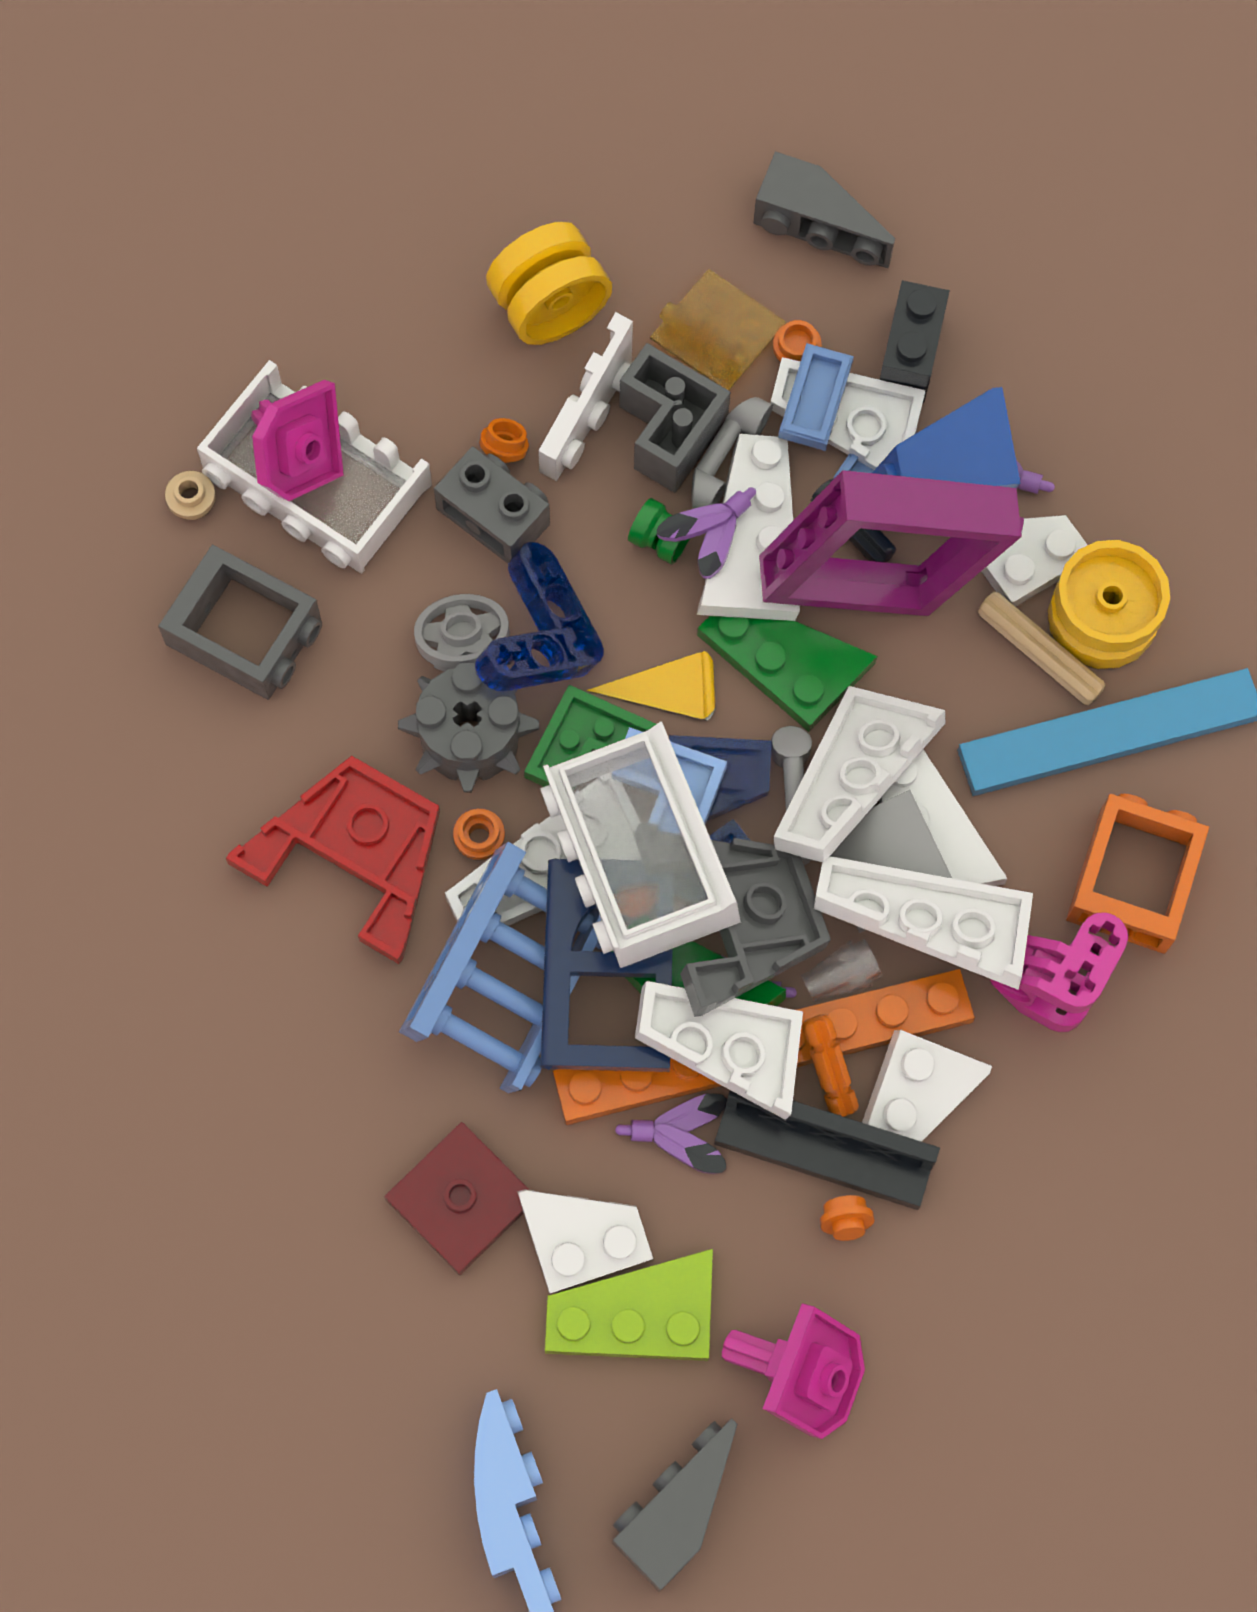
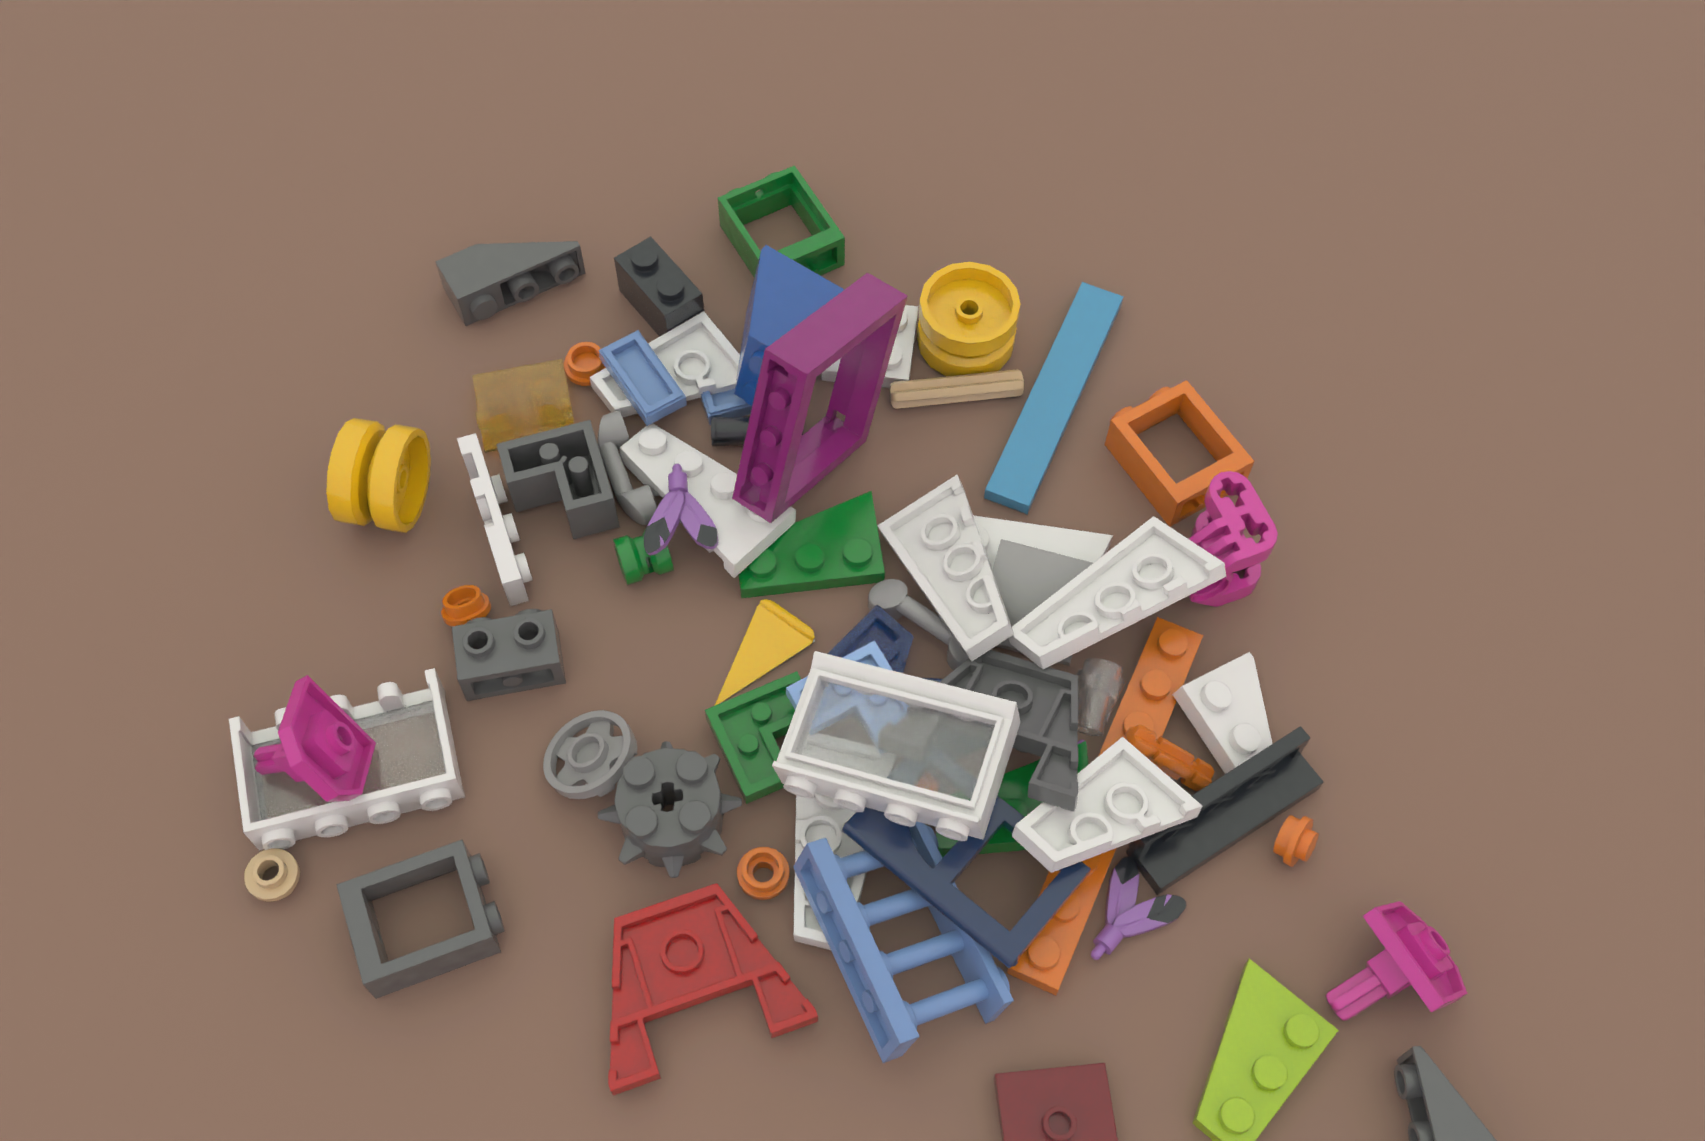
camera: 50 degrees left, 10 degrees down
(566, 642) = (668, 686): clear blue beam -> none
(582, 1237) = (1166, 1053): white wing -> none
(1052, 425) = (740, 206): none -> green window

